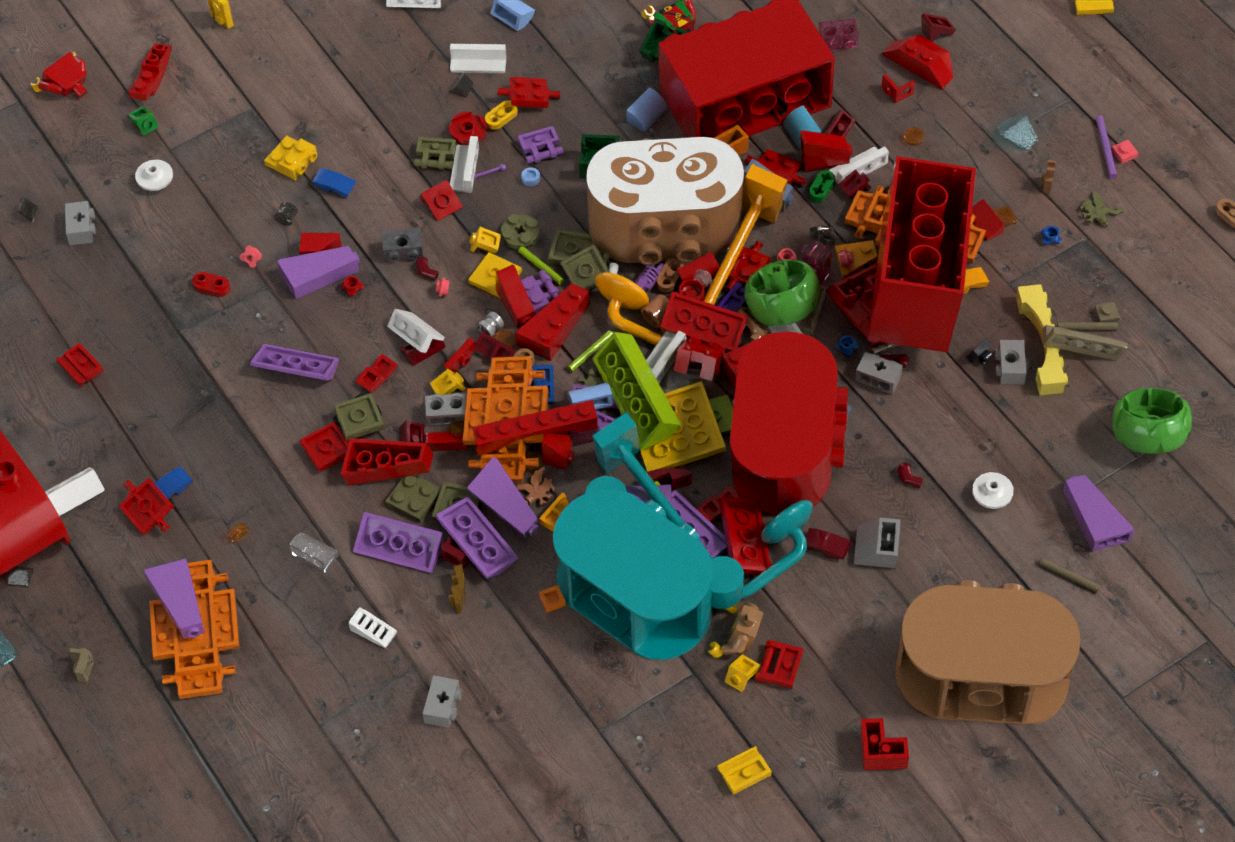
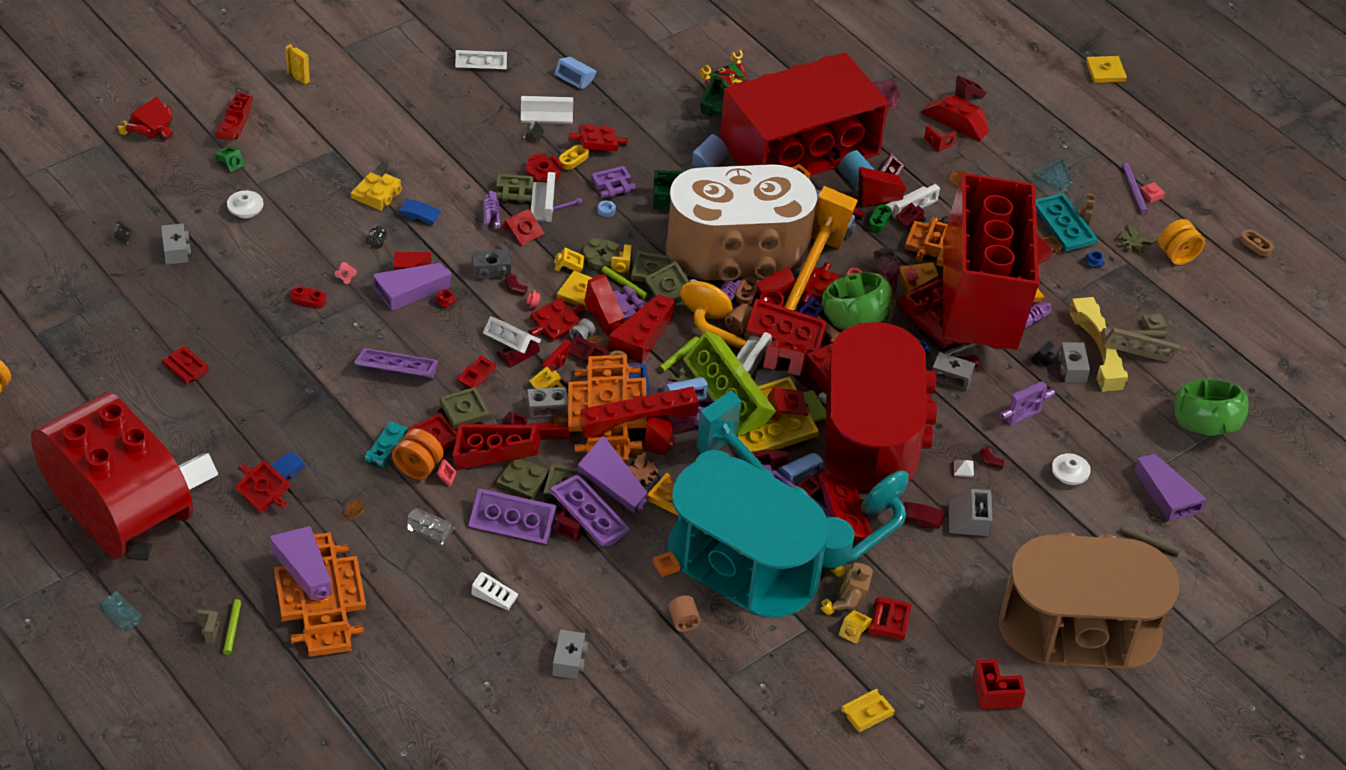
camera: 10 degrees left, 10 degrees down
(105, 664) = (232, 626): none -> lime bar
(277, 456) = (385, 444): none -> teal plate
(305, 471) = (417, 454): none -> orange wheel
(335, 491) = (446, 473): none -> coral slope
(408, 180) = (491, 210): none -> medium lavender hinge
(458, 589) = (575, 556): pearl gold slope -> none
(464, 310) = (555, 319): none -> red plate
(542, 242) = (622, 263): none -> yellow bracket
(564, 657) = (684, 613): none -> nougat piece
(695, 413) = (787, 401): none -> red piece
(703, 488) = (801, 468): none -> light blue brick
(704, 277) = (783, 288): clear plate -> none
(878, 487) = (963, 468): none -> white slope
(952, 413) = (1026, 403): none -> medium lavender plate
(975, 304) = (1038, 312): none -> medium lavender hinge
(1022, 190) = (1065, 222): none -> teal plate
(1146, 216) = (1181, 242): none -> light orange wheel

